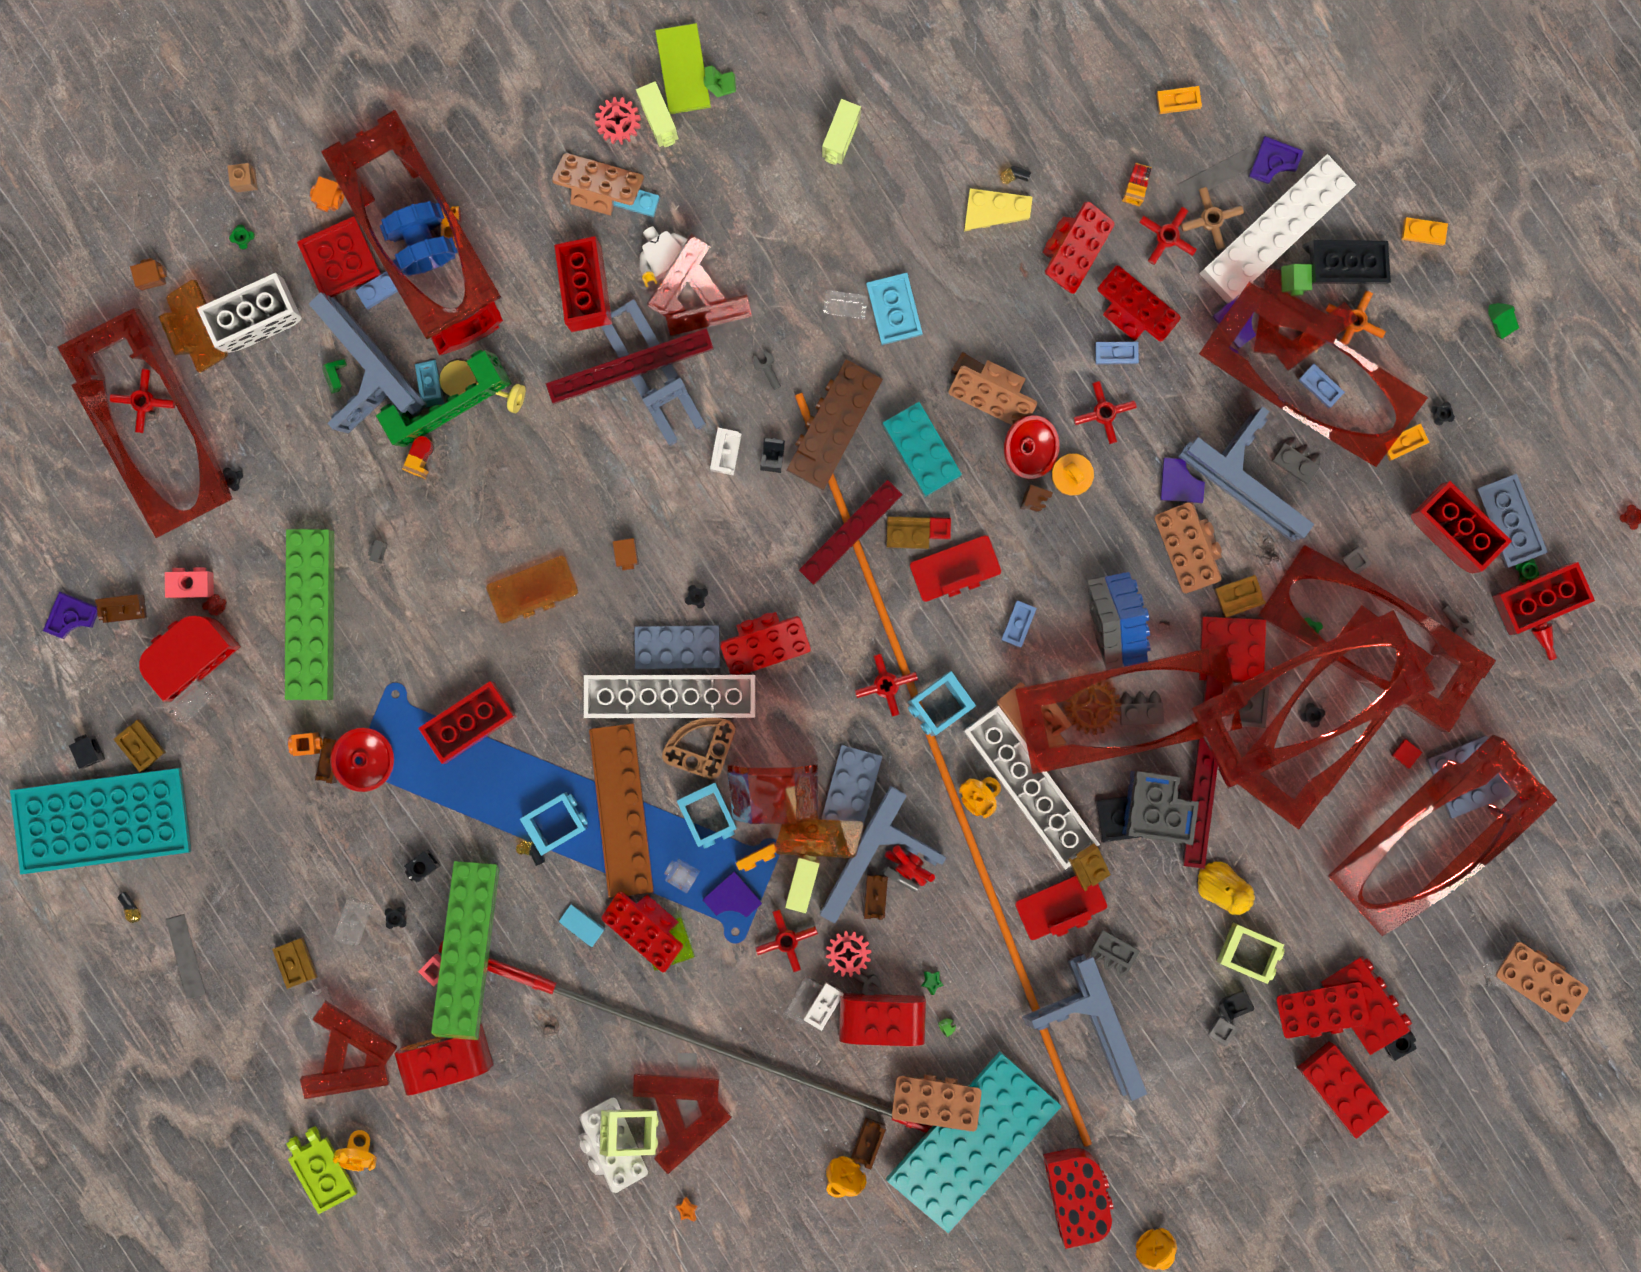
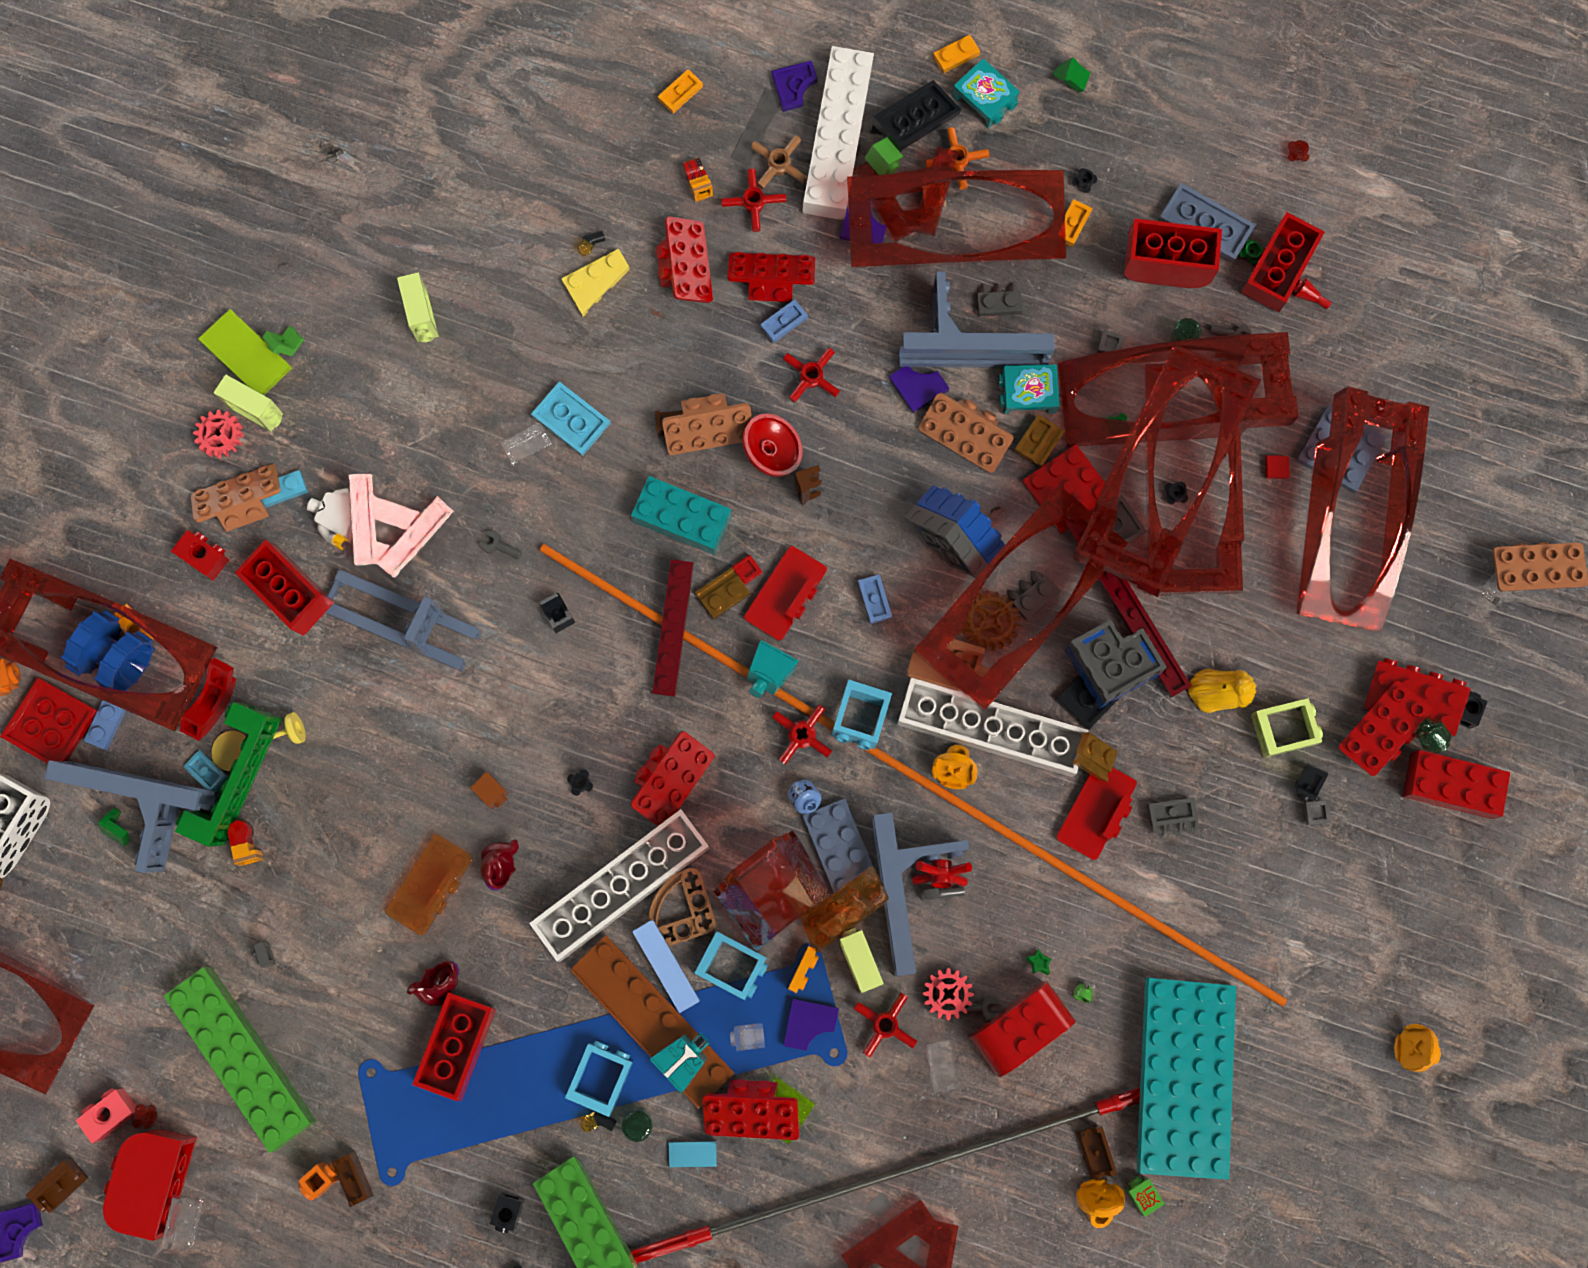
camera: 35 degrees left, 10 degrees down
(237, 476) = (85, 984): black plate -> none
(375, 757) = (384, 1139): red dish -> none
(486, 666) = (436, 983): none -> dark red hair
(530, 199) = (189, 547): none -> red brick
(557, 876) = (637, 1125): none -> clear green head
(593, 612) = (498, 863): none -> dark red hair
(621, 855) = (681, 1060): none -> teal torso
(629, 366) = (375, 627): dark red plate -> none
(660, 779) = (666, 966): none -> light blue tile
(677, 647) = (595, 839): sand blue plate -> none
(725, 451) = (514, 640): white hinge -> none
(823, 1006) = (962, 1058): white hinge -> none
(833, 424) = (590, 549): reddish brown plate -> none
(852, 732) = (804, 796): none -> medium blue head
(875, 896) = (932, 925): reddish brown hinge -> none
(879, 1197) = (1144, 1195): none -> bright green brick
(898, 618) = (769, 669): none -> teal torso
(937, 1102) = (1127, 1066): nougat bracket -> none
(1072, 474) = (824, 444): light orange tile -> none
(1078, 1196) = (1315, 1054): red brick -> none
(1096, 1003) = (1195, 870): sand blue piece -> none
(1264, 549) = (1029, 388): none -> panel
(1321, 386) = (970, 228): medium blue plate -> none
(1353, 1043) = (1433, 735): none -> clear green head
(1421, 597) = (1186, 329): none -> clear green head
(1422, 284) = (987, 92): none -> panel

